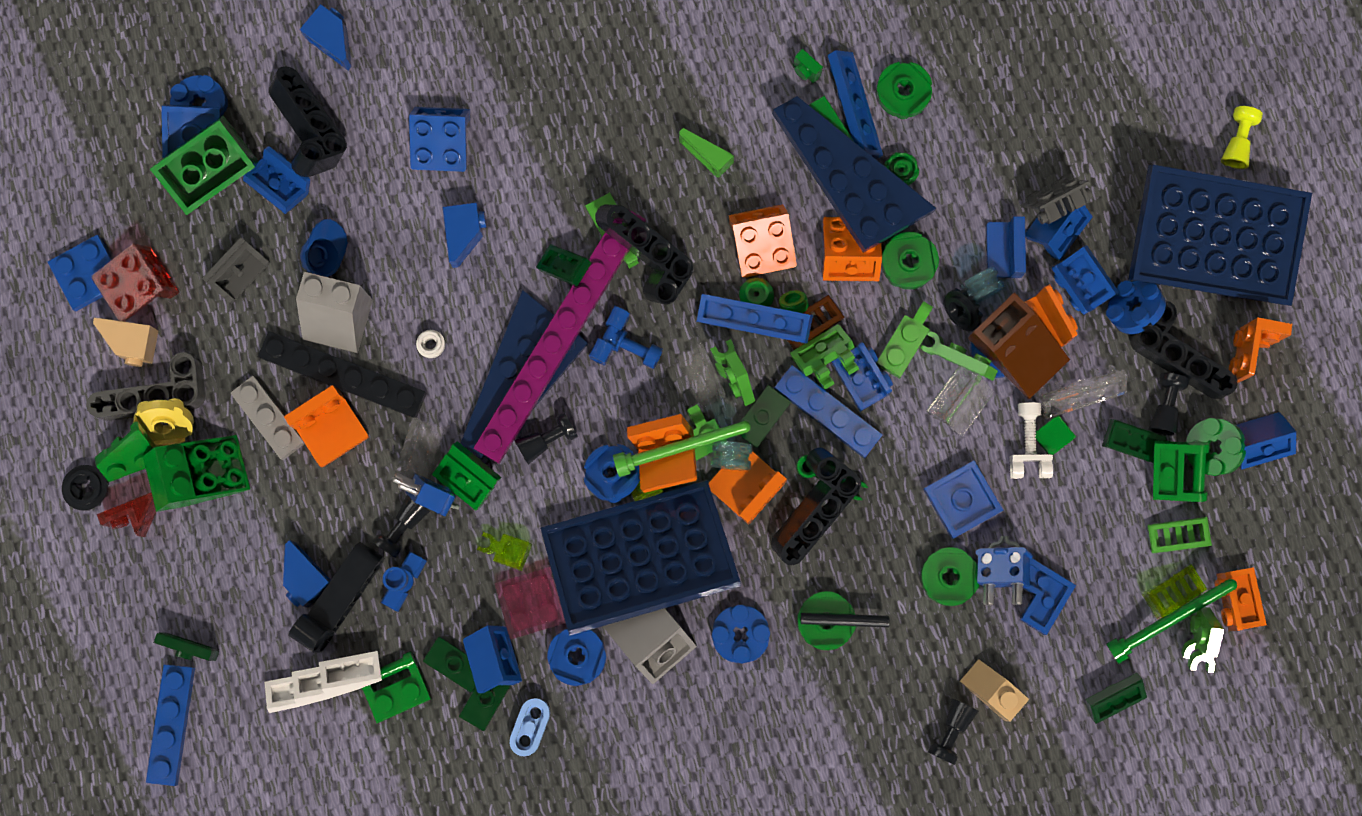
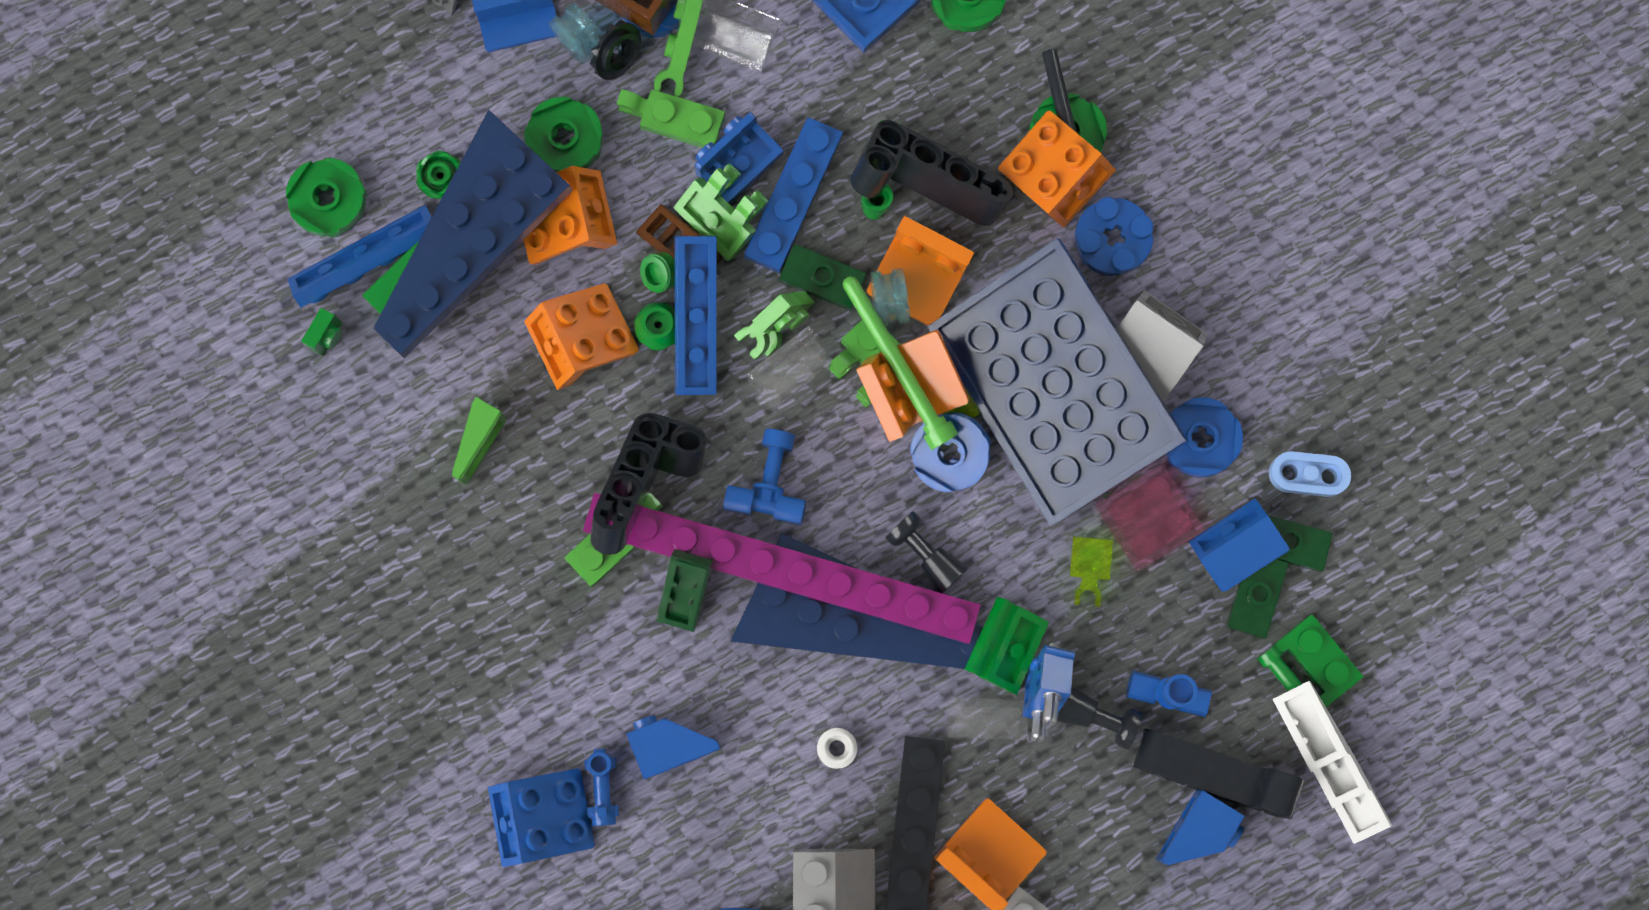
camera: 110 degrees left, 0 degrees up
(460, 182) = (600, 765): none -> blue bar
(798, 602) = (1056, 168): none -> orange bracket

